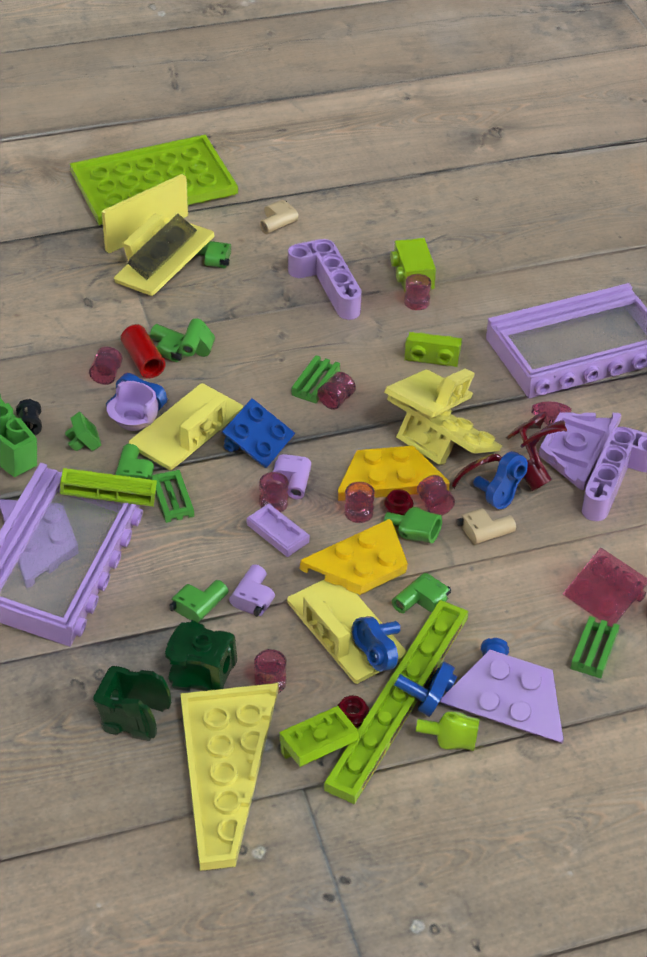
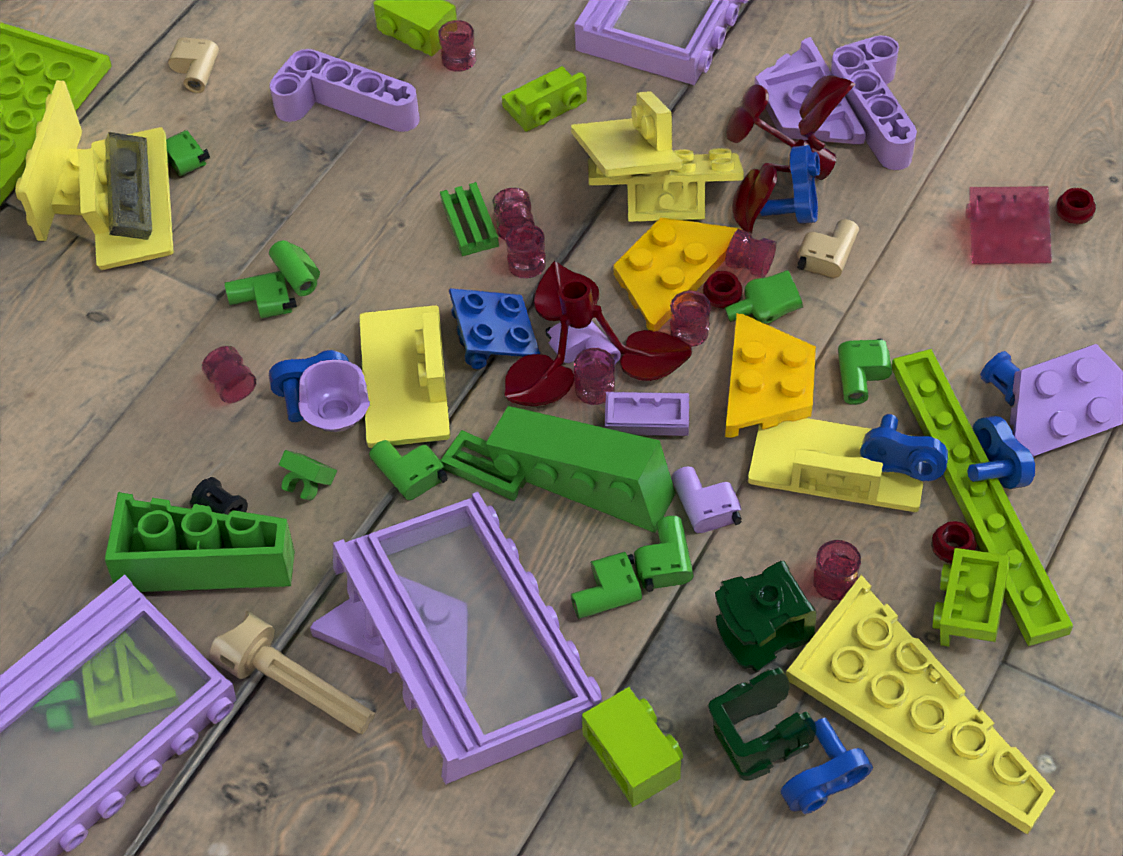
camera: 40 degrees left, 10 degrees up
(65, 665) = (632, 745): none -> lime brick
(108, 487) = (443, 509): lime piece -> none
(143, 351) = (249, 326): red pin -> none
(143, 759) = (845, 769): none -> blue piece
(155, 594) = (614, 588): none -> bright green piece
(209, 526) = (586, 464): none -> bright green wedge
(298, 445) = (573, 301): none -> dark red plant
(319, 411) = (525, 250): none -> clear pink wheel
(452, 731) = (1069, 480): lime piece -> none
(552, 410) = (736, 82): clear pink tile -> none
(601, 629) = (1072, 290): bright green tile -> none

